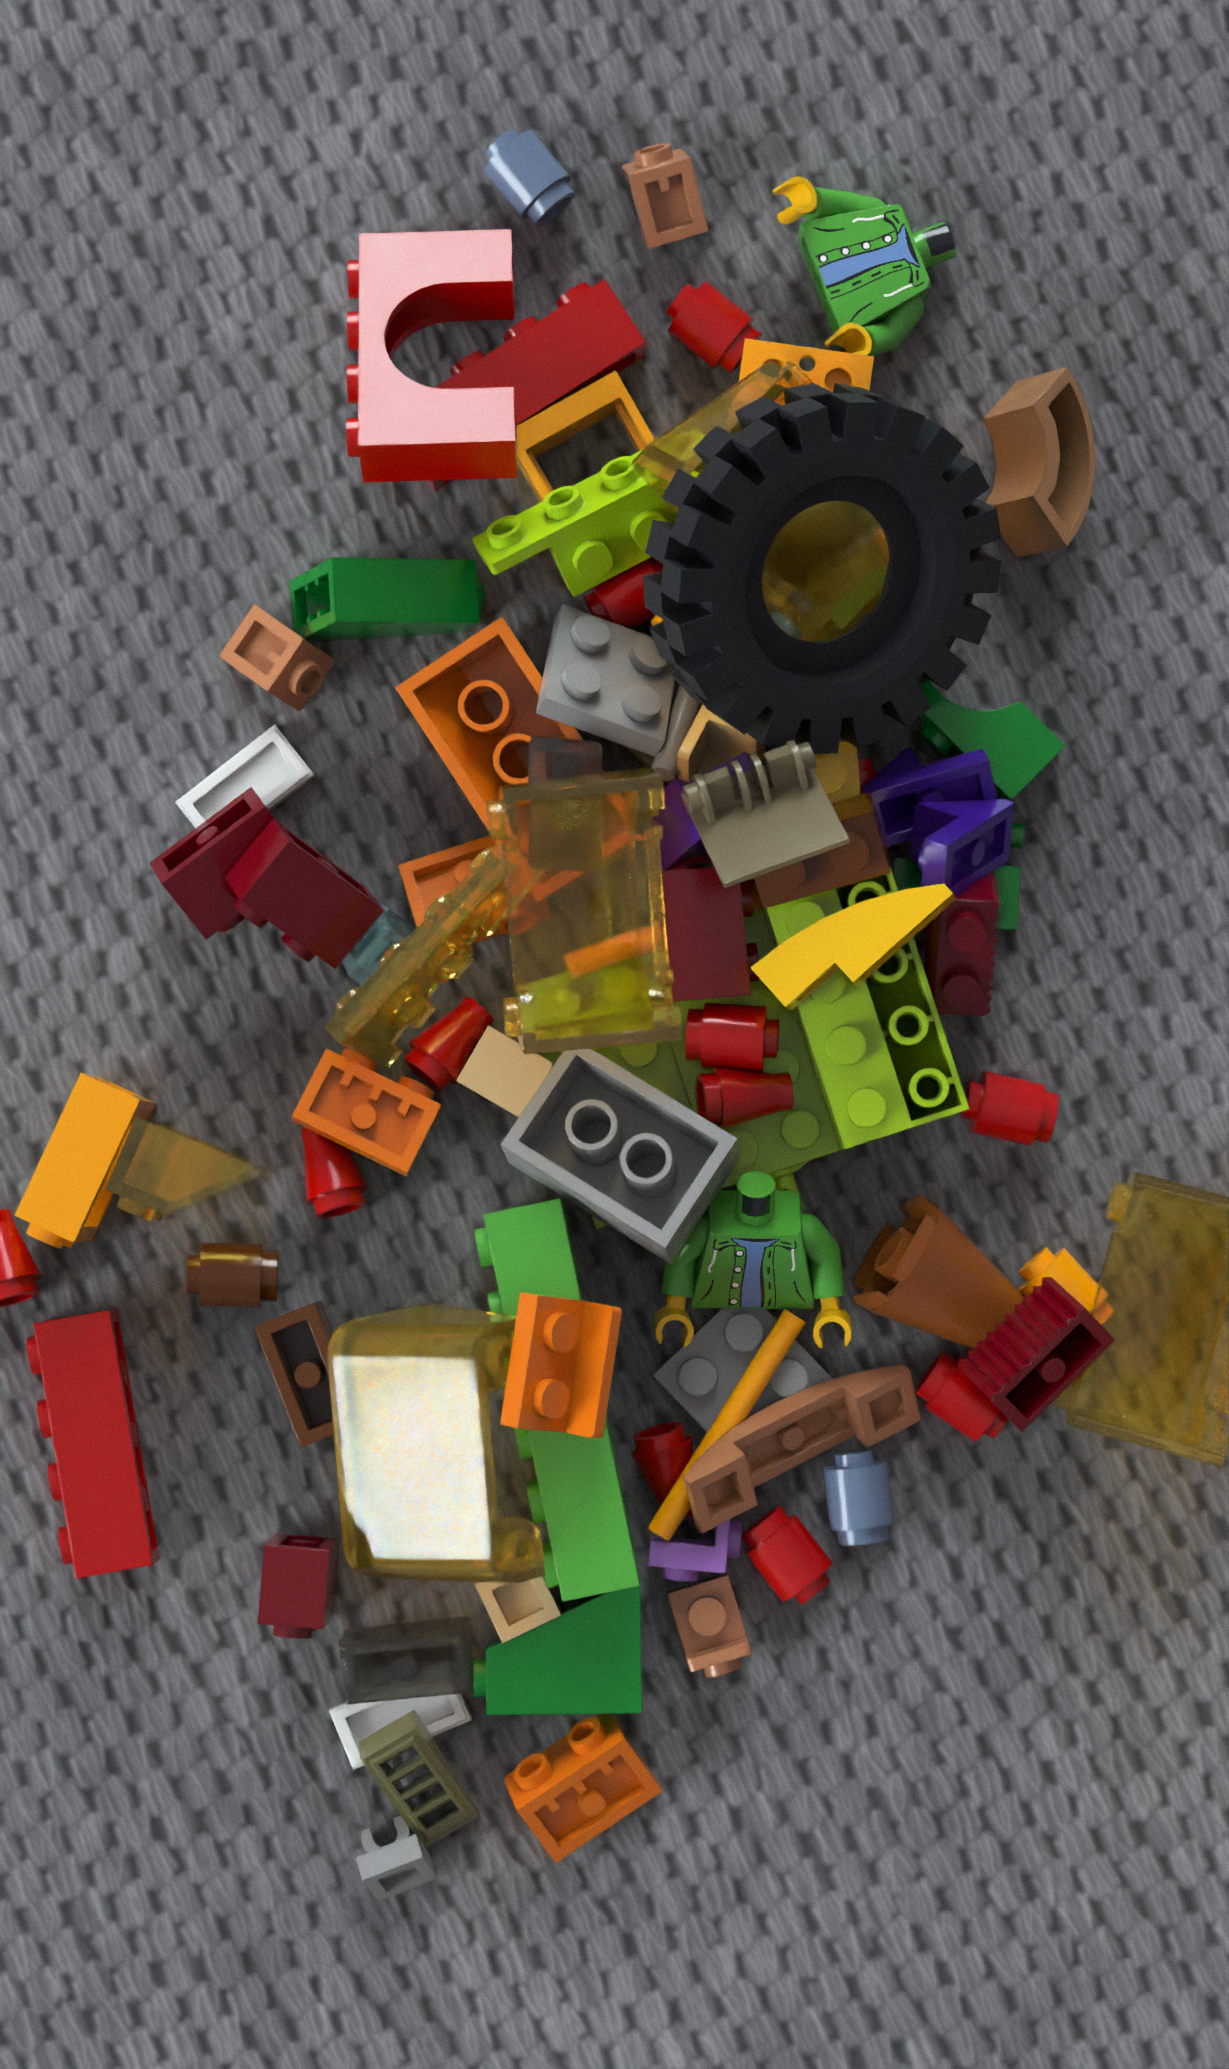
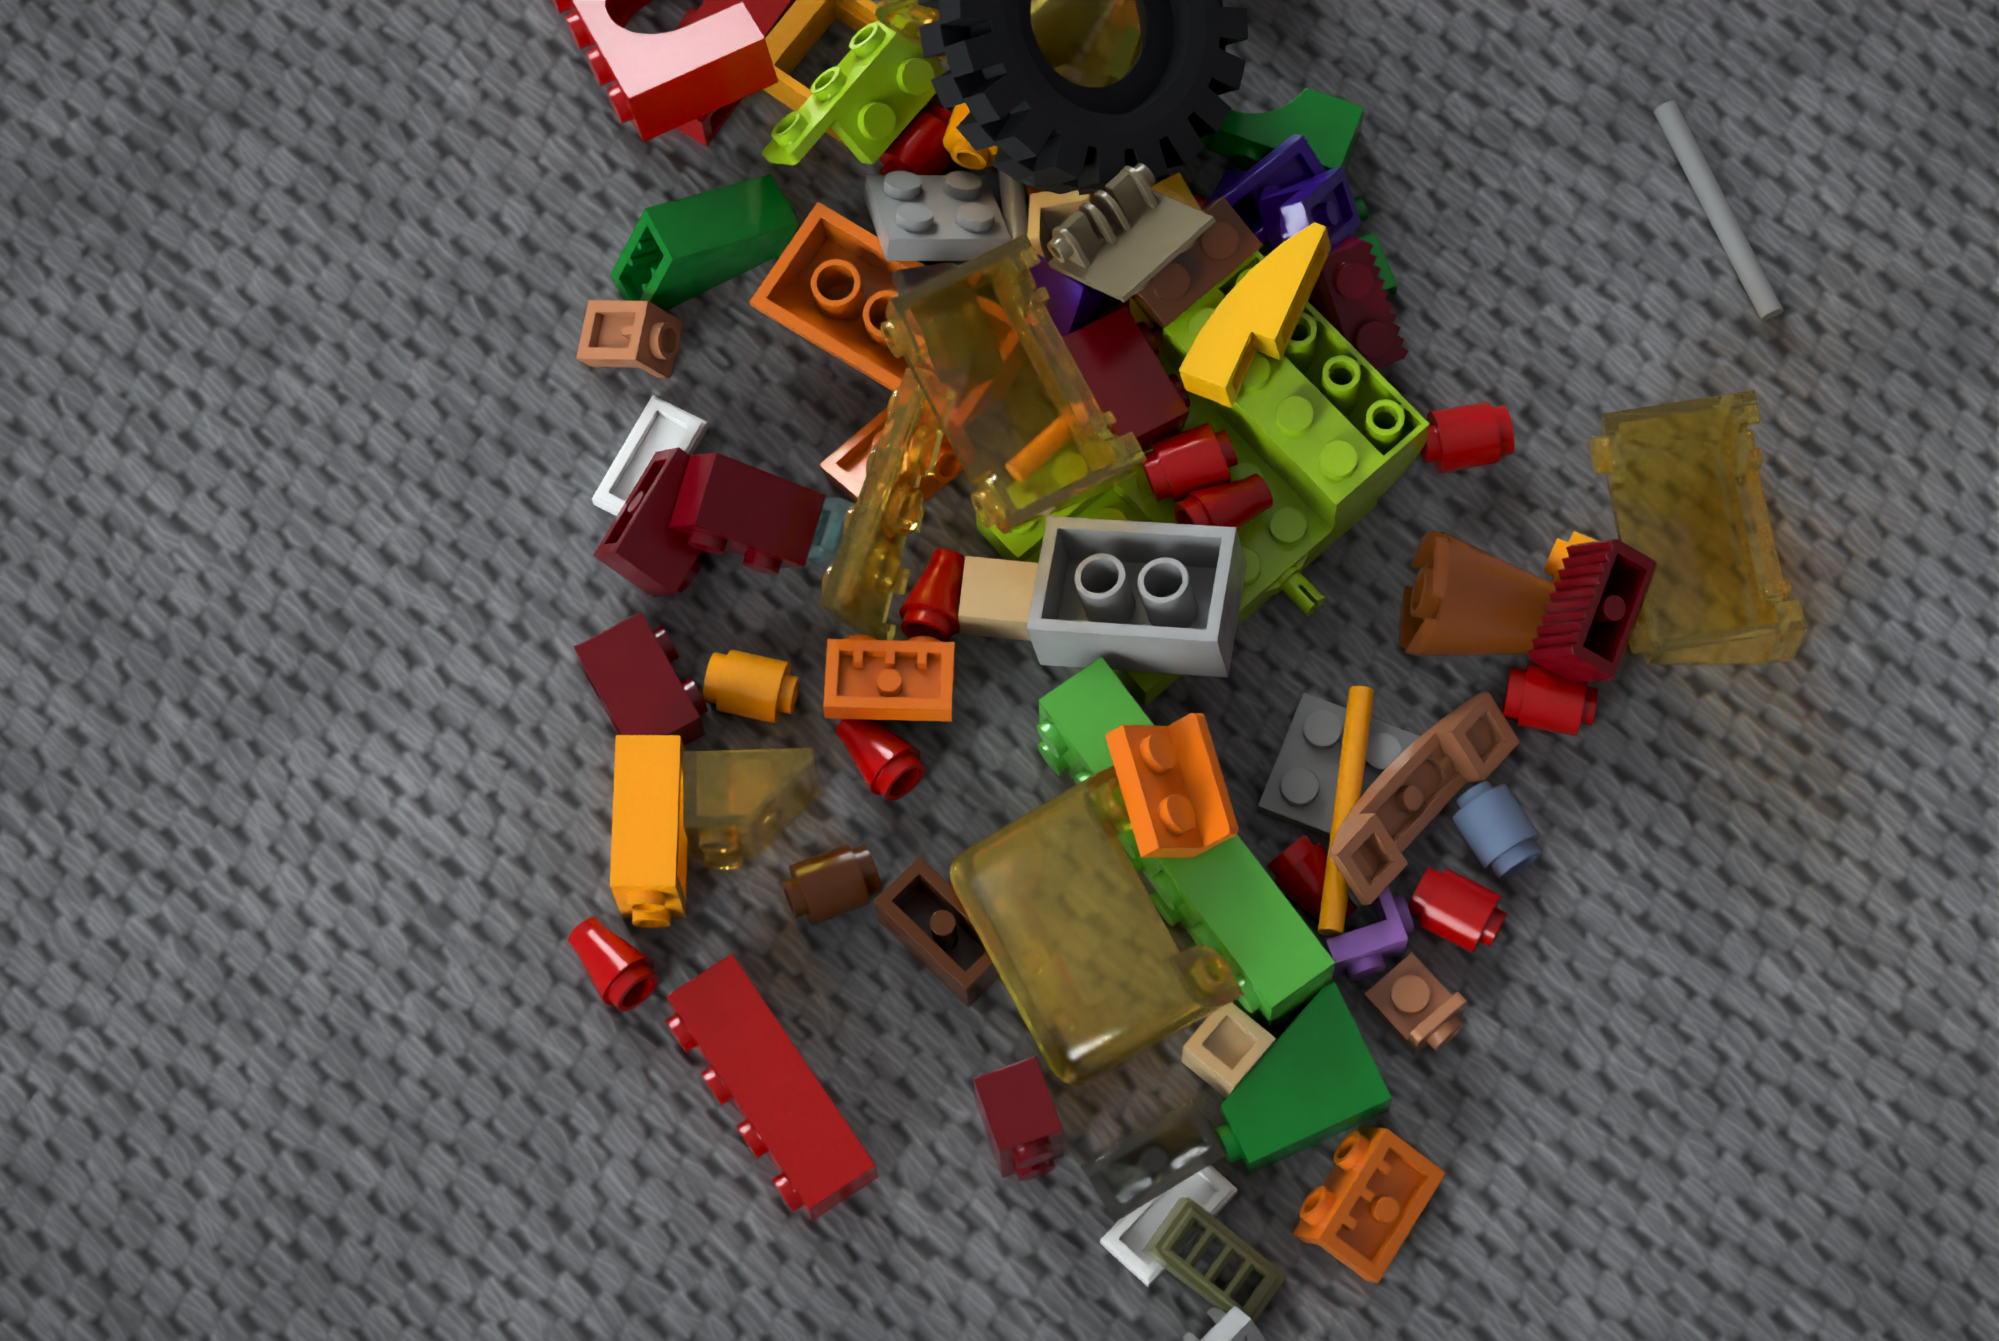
camera: 25 degrees left, 15 degrees down
(139, 1012) = (637, 682): none -> dark red brick
(241, 1053) = (750, 685): none -> light orange brick
(755, 1254) = (1299, 650): bright green torso -> none

